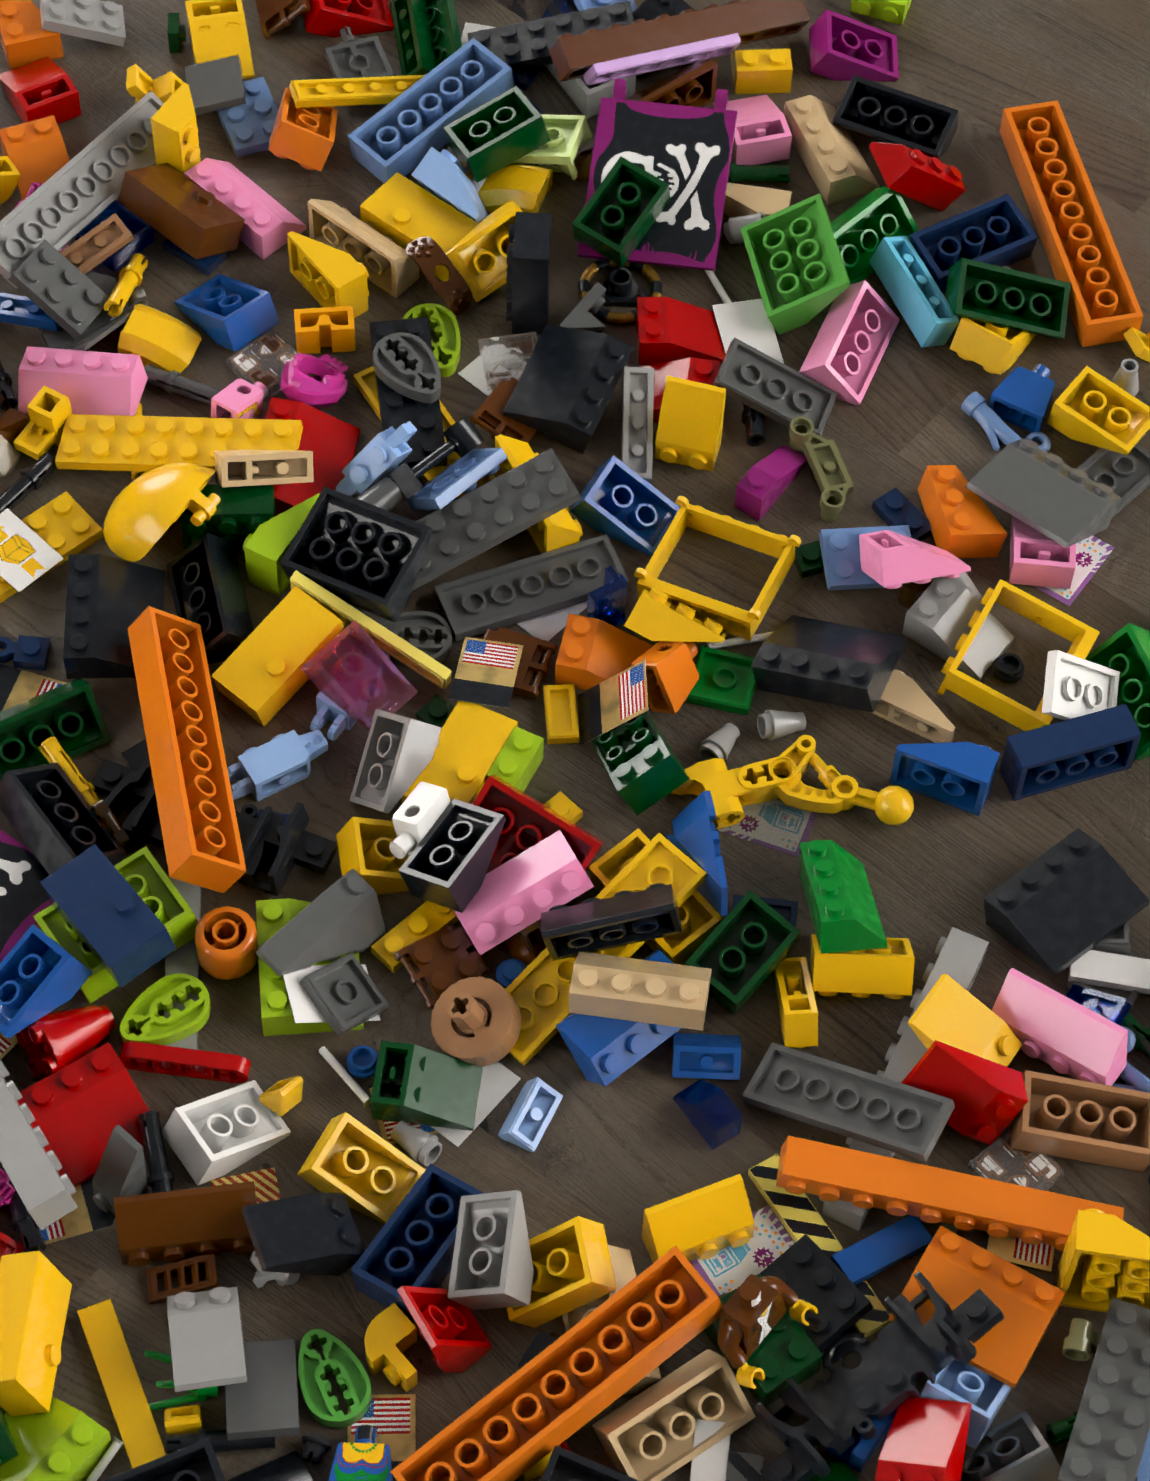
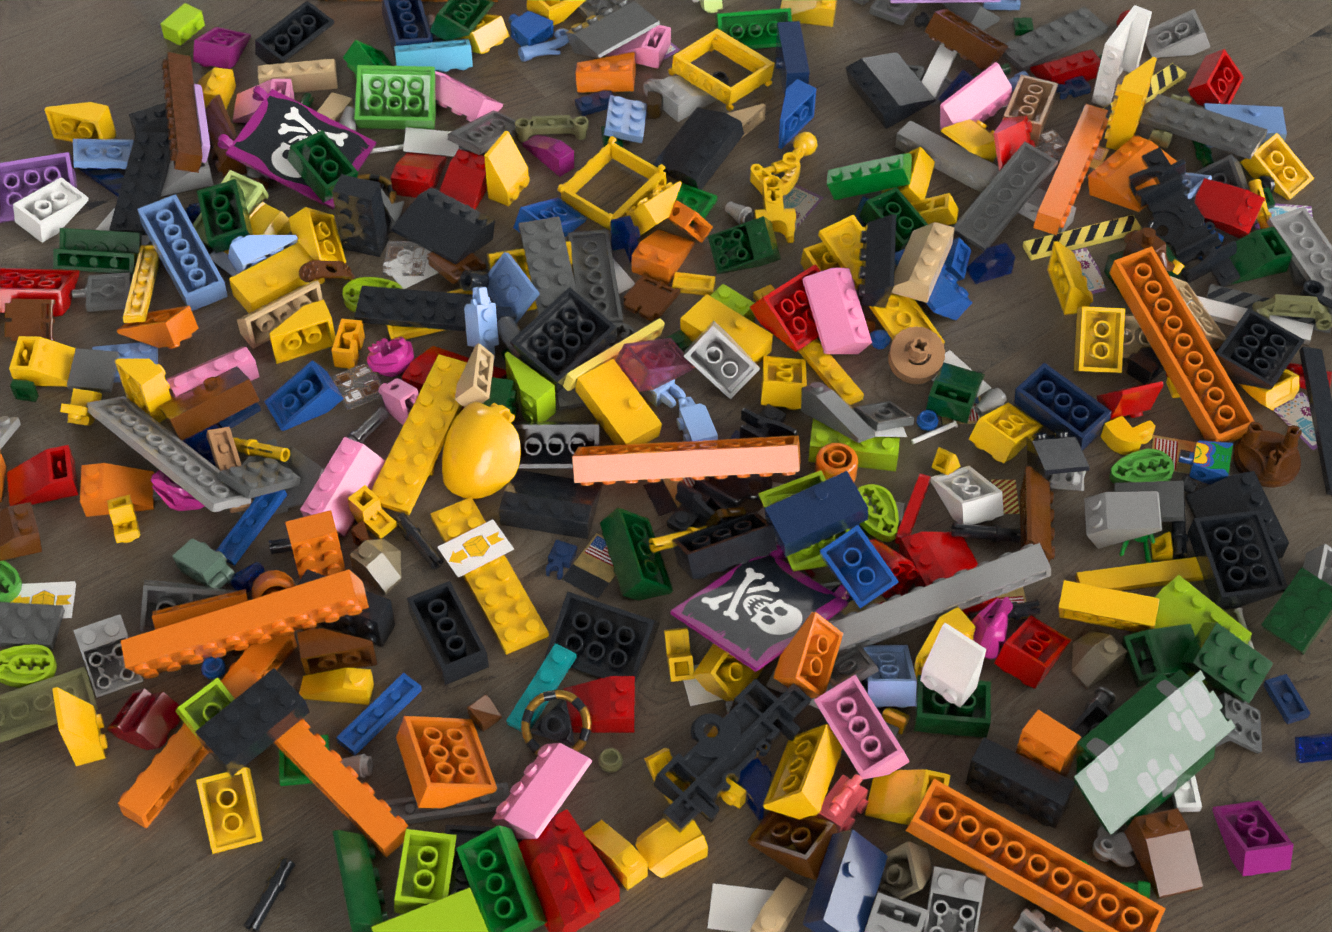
camera: 75 degrees left, 5 degrees down
(119, 1170) = (998, 536): dark grey slope -> none
(158, 339) = (316, 440): yellow slope -> none
(194, 1265) = (1066, 519): reddish brown slope -> none
(406, 381) = (401, 290): dark grey piece -> none
(417, 817) = (784, 350): white torso -> none
(441, 961) = (868, 366): reddish brown plate -> none
(453, 855) = (808, 331): black slope -> none
(486, 672) = (661, 304): sticker -> none
(491, 1252) = (1087, 360): light grey slope -> none
(530, 1114) = (976, 349): light blue slope -> none
(612, 702) = (703, 247): sticker -> none
(638, 420) = (485, 199): light grey plate -> none
(698, 840) = (810, 219): blue wedge -> none
(776, 724) = (732, 184): light grey cone -> none
(824, 1285) = (1110, 236): black plate -> none
(882, 1249) = (1093, 210): blue tile -> none
(901, 559) = (647, 93): bright pink slope -> none
(918, 175) = (347, 28): red slope -> none
(1077, 686) = (751, 41): white plate -> none

